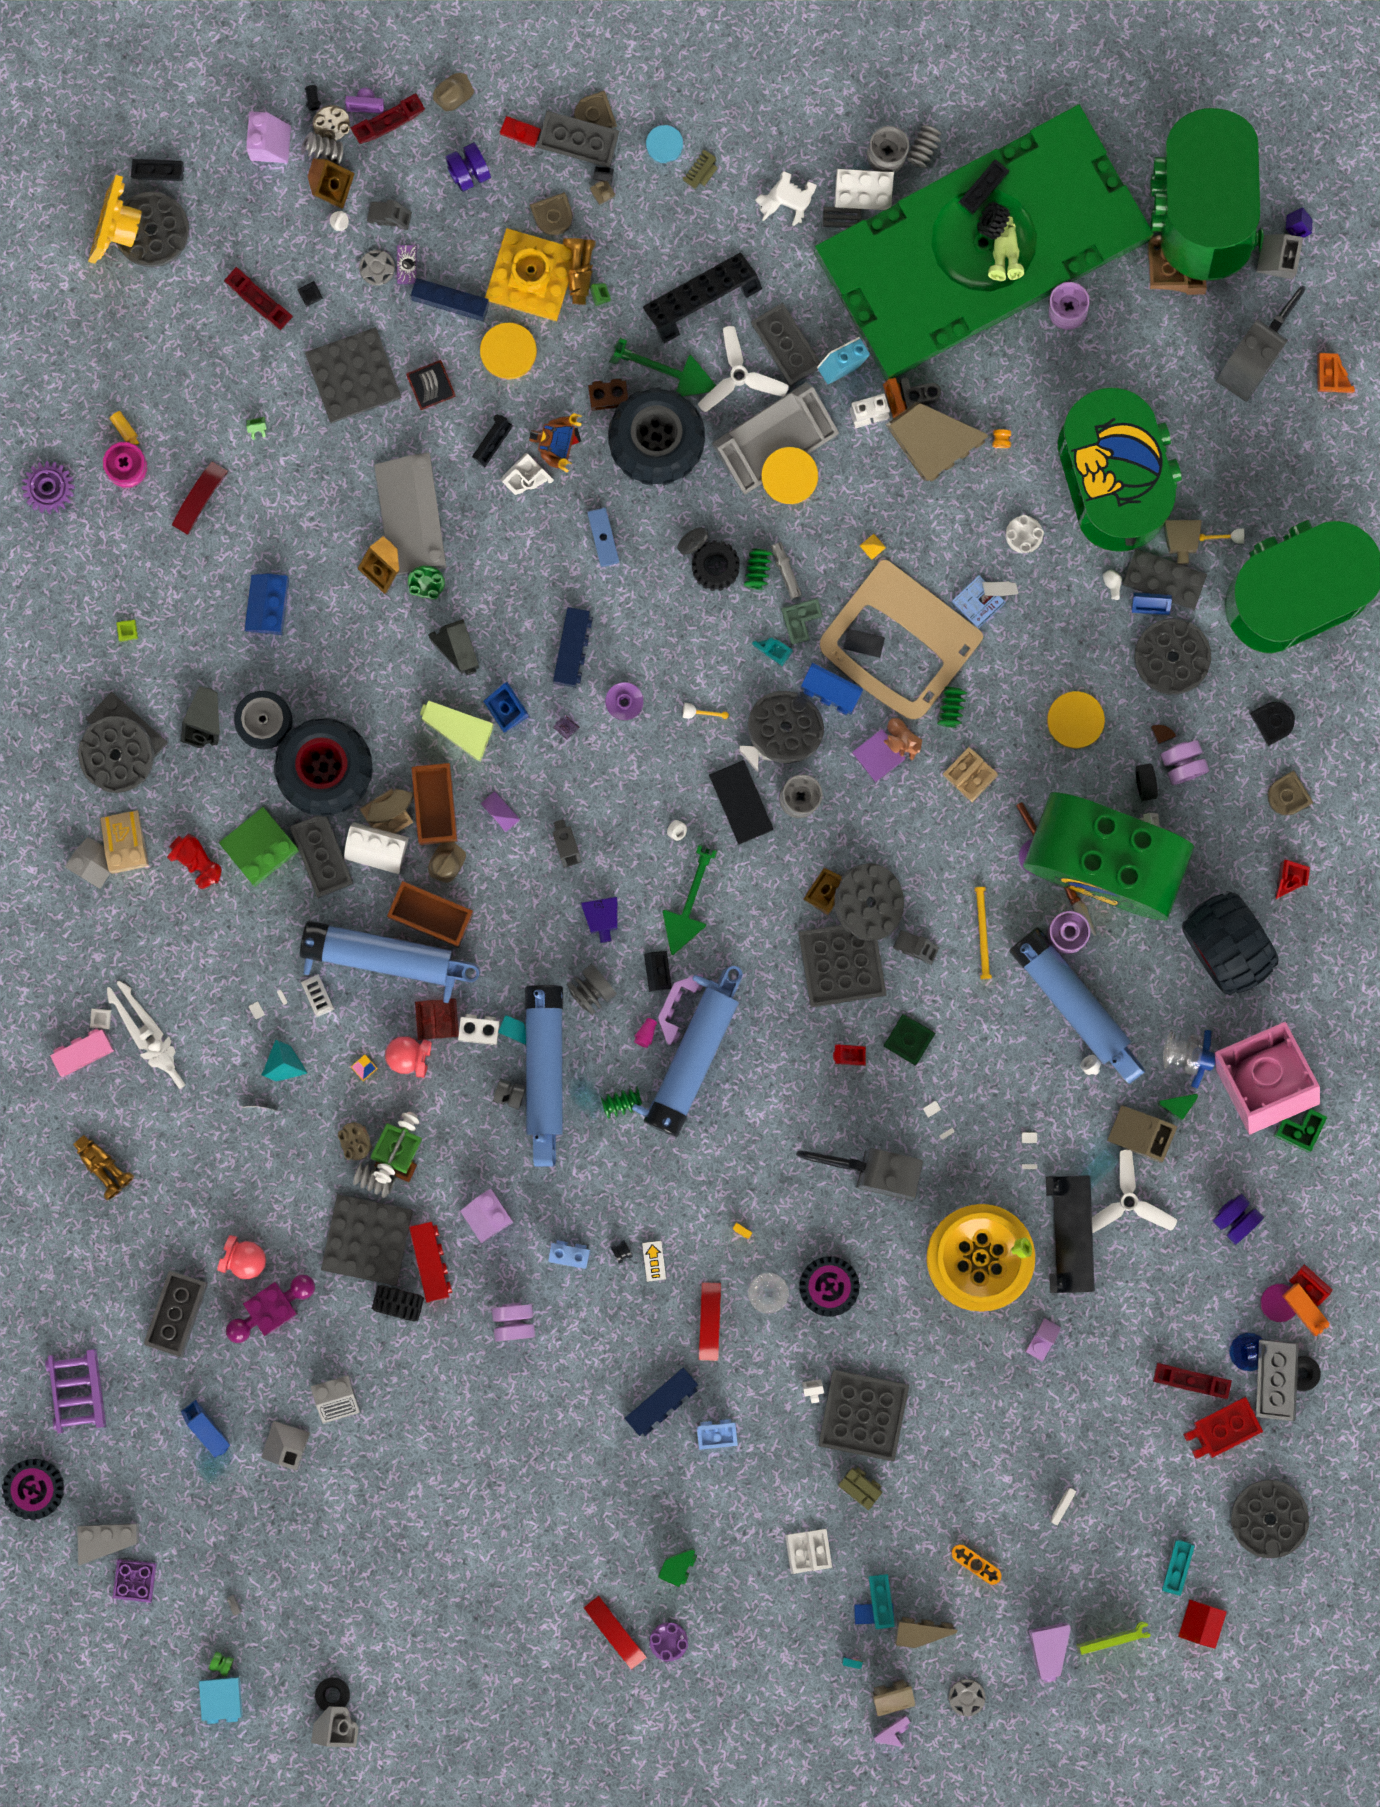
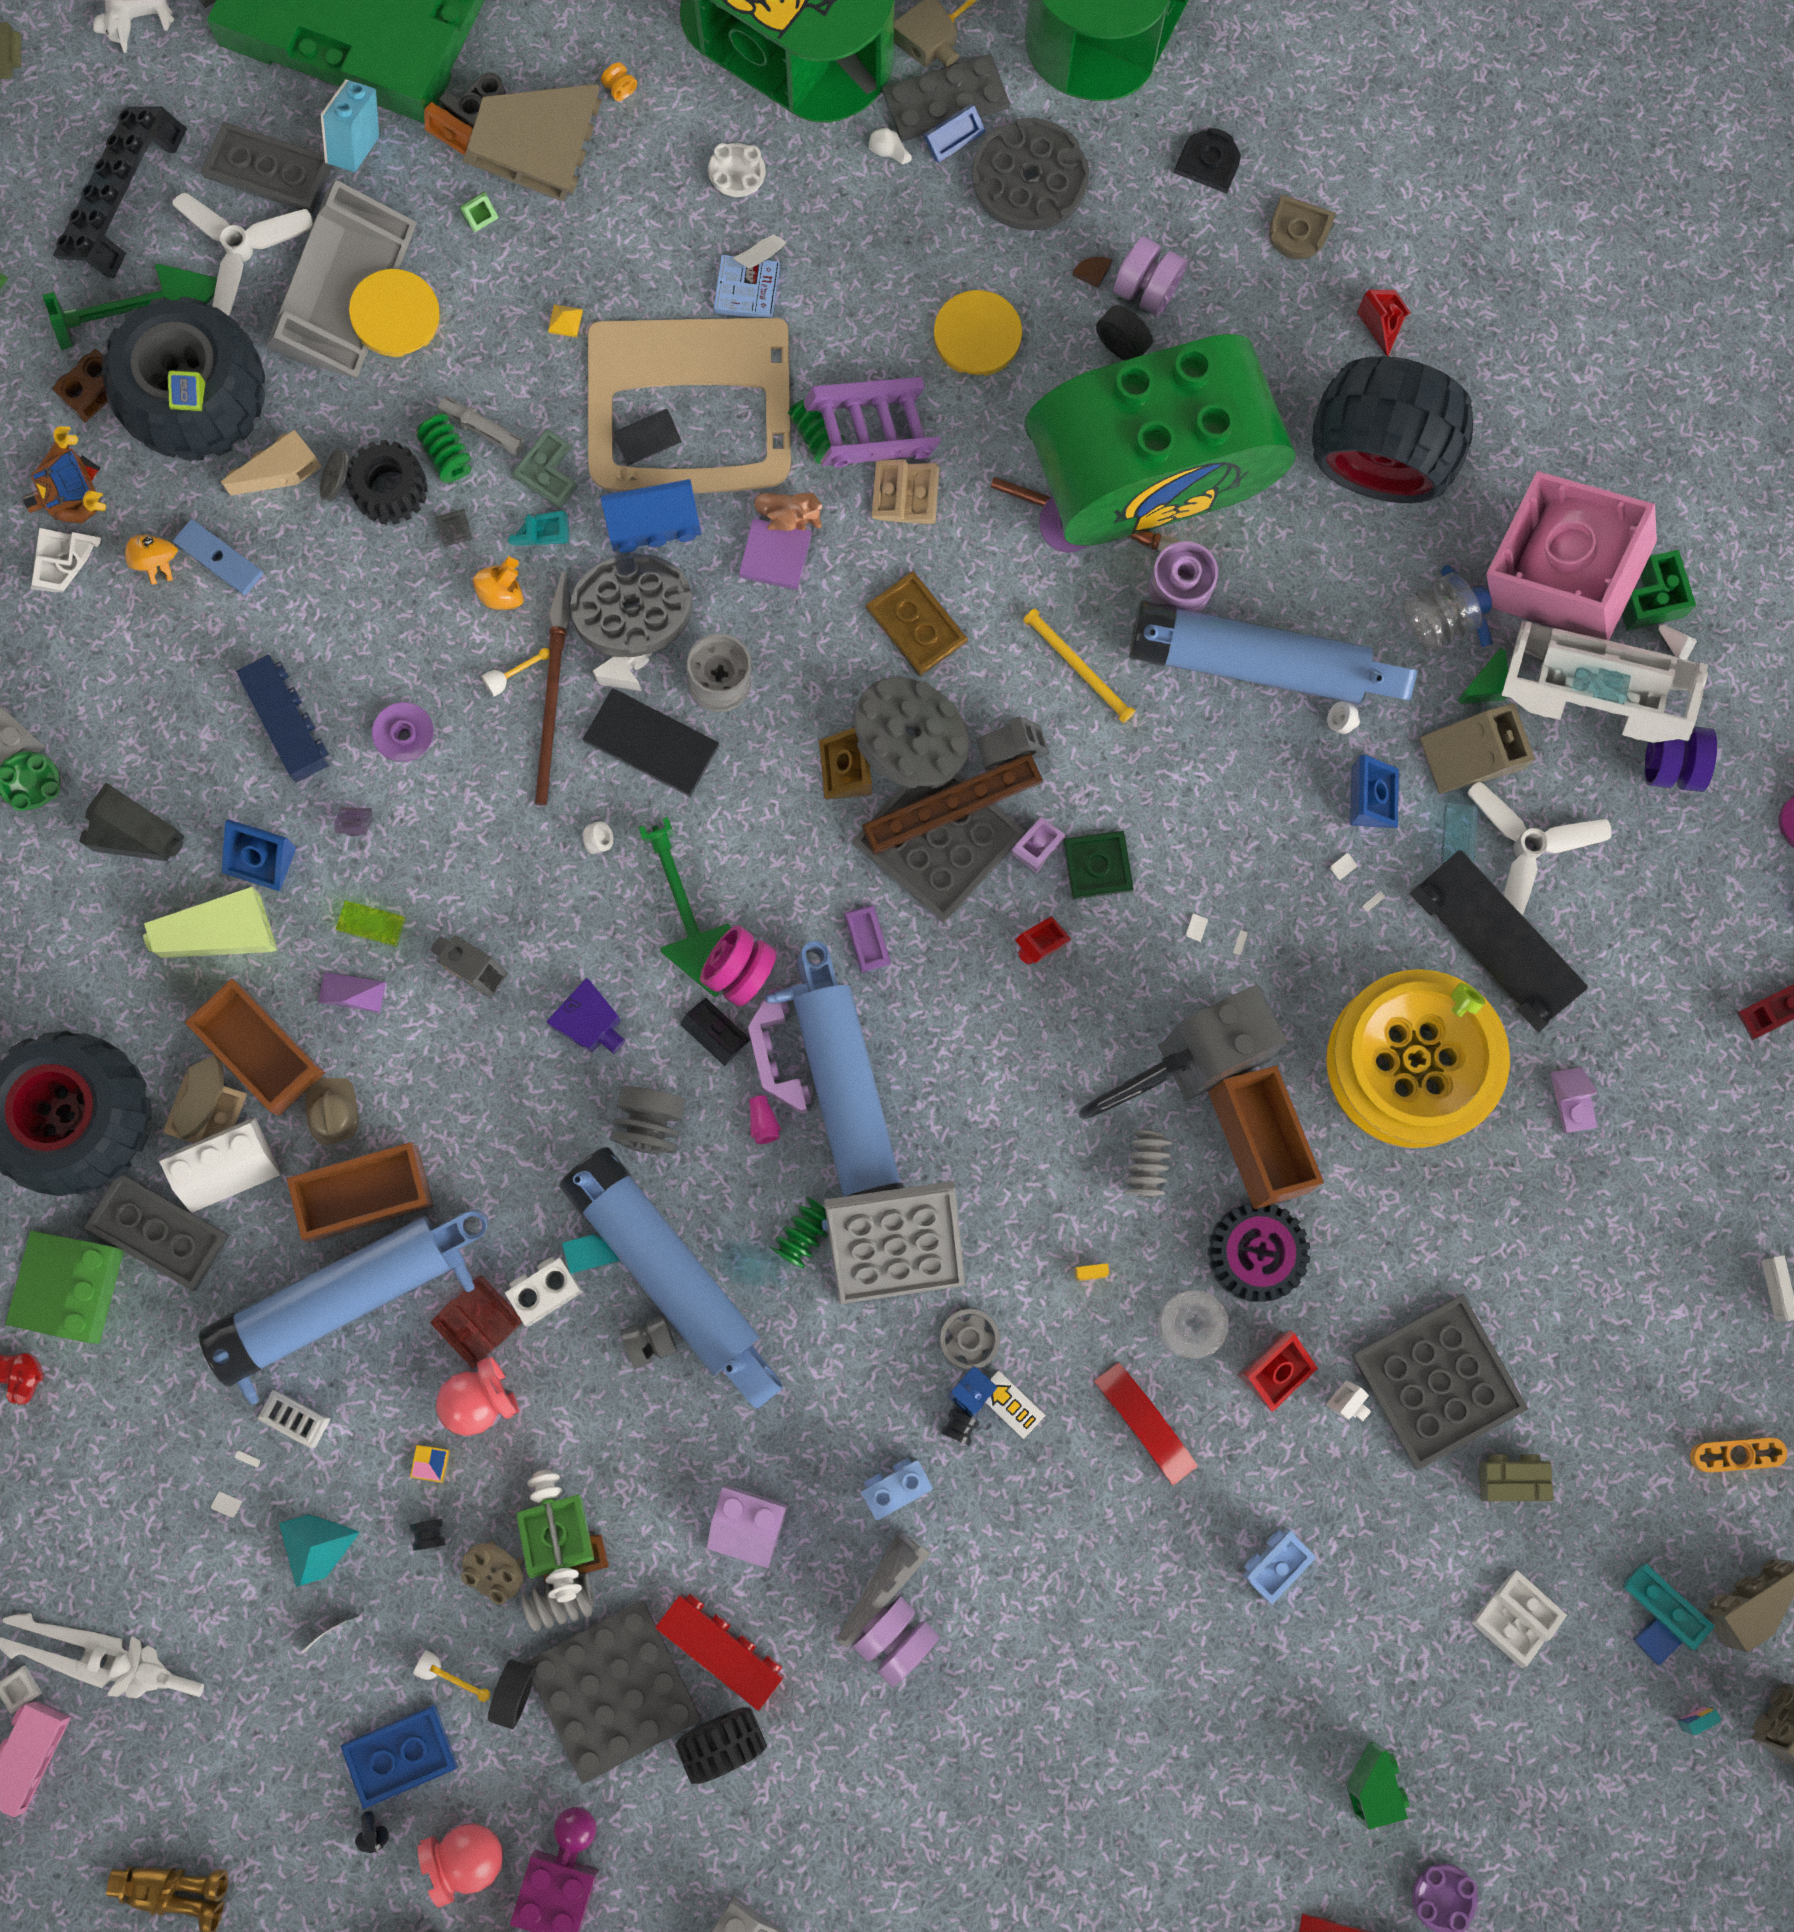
camera: 40 degrees left, 5 degrees down
(209, 1216) = (371, 1837): none -> black plate
(248, 1189) = (399, 1756): none -> blue tile
(293, 1161) = (430, 1666): none -> hinge
(321, 1203) = (511, 1694): none -> black tyre
(338, 1099) = (427, 1534): none -> black wheel
(535, 784) = (370, 923): none -> clear neon green plate
(540, 1289) = (895, 1568): none -> light grey tile
(570, 511) = (148, 552): none -> light orange piece
(640, 1239) = (972, 1391): none -> blue slope
(650, 456) = (185, 390): none -> slope
(659, 1215) = (969, 1339): none -> light grey wheel
(660, 1142) = (895, 1242): none -> light grey tile
(661, 1401) = (1171, 1583): dark blue brick -> none
(672, 514) = (278, 466): none -> tan slope
(693, 950) = (738, 965): none -> dark pink wheel
(728, 664) = (498, 587): none -> light orange piece
(731, 613) = (454, 528): none -> clear smoke tile
(746, 702) = (559, 618): none -> copper piece
(767, 985) = (867, 938): none -> medium lavender tile
(792, 1348) = (1278, 1370): none -> red slope
(811, 1203) = (1148, 1164): none -> light grey piece
(861, 953) = (952, 803): none -> reddish brown tile
(872, 407) = (427, 159): white hips -> none
(874, 454) = (478, 212): none -> bright green slope
(876, 1235) = (1265, 1137): none -> dark orange piece
(887, 1006) = (1037, 844): none -> lavender slope
(920, 846) = (916, 623): none -> pearl gold tile
(995, 716) = (876, 394): none -> medium lavender fence
(1074, 1115) = (1374, 793): none -> blue slope
(1221, 1154) = (1606, 684): none -> clear light blue plate
(1229, 1150) = (1648, 688): none -> white piece
(1288, 1161) = (1679, 643): none -> white slope

